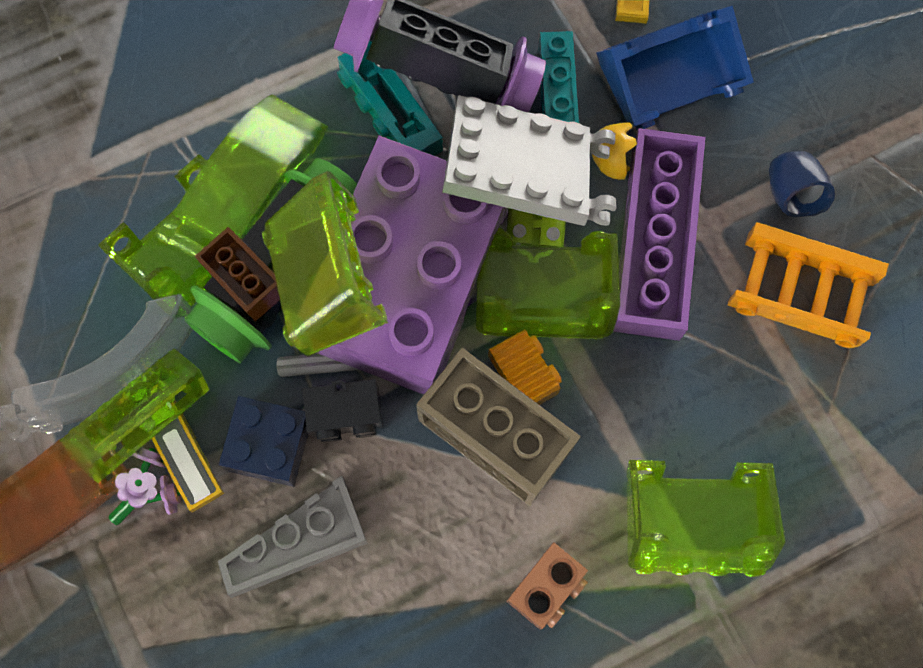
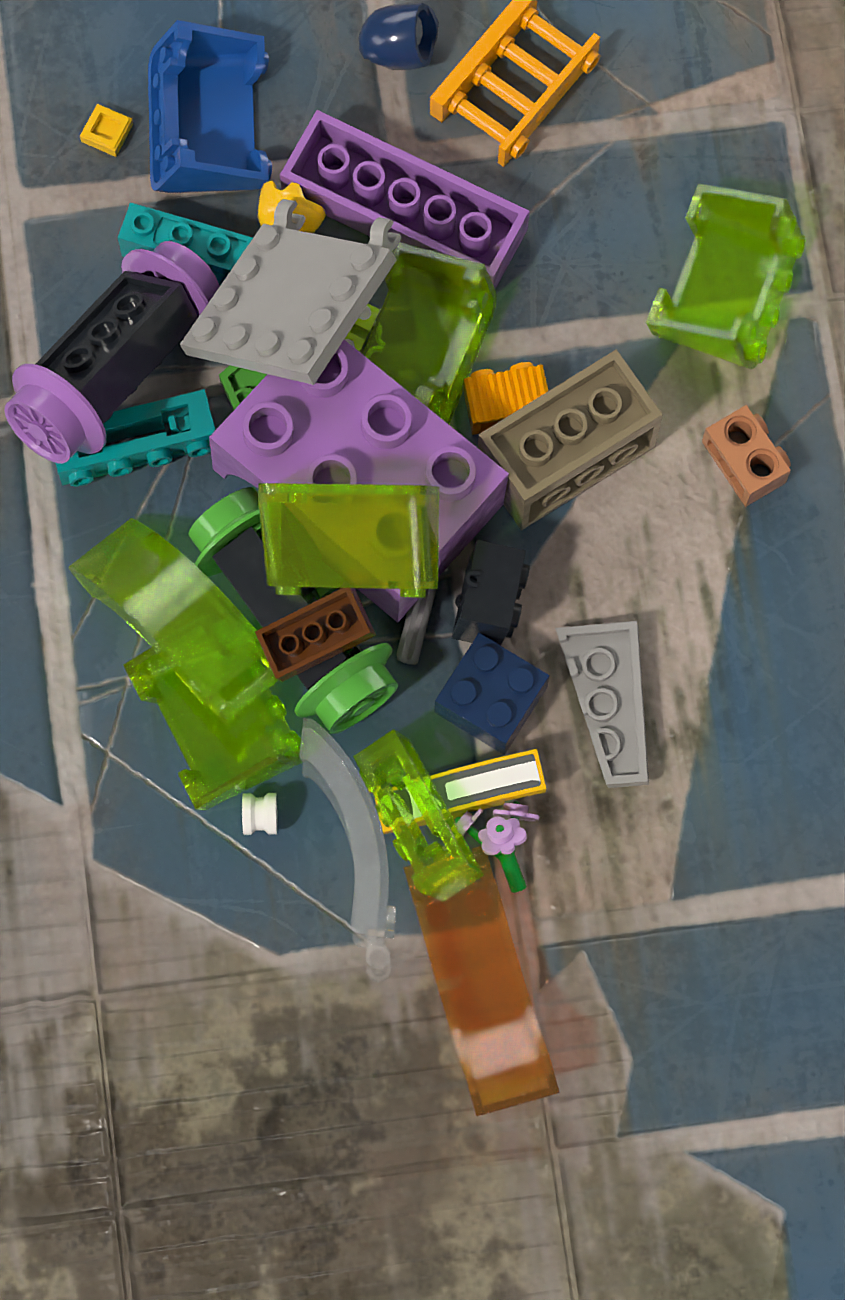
camera: 70 degrees left, 0 degrees up
(116, 296) = (259, 813): none -> white wheel

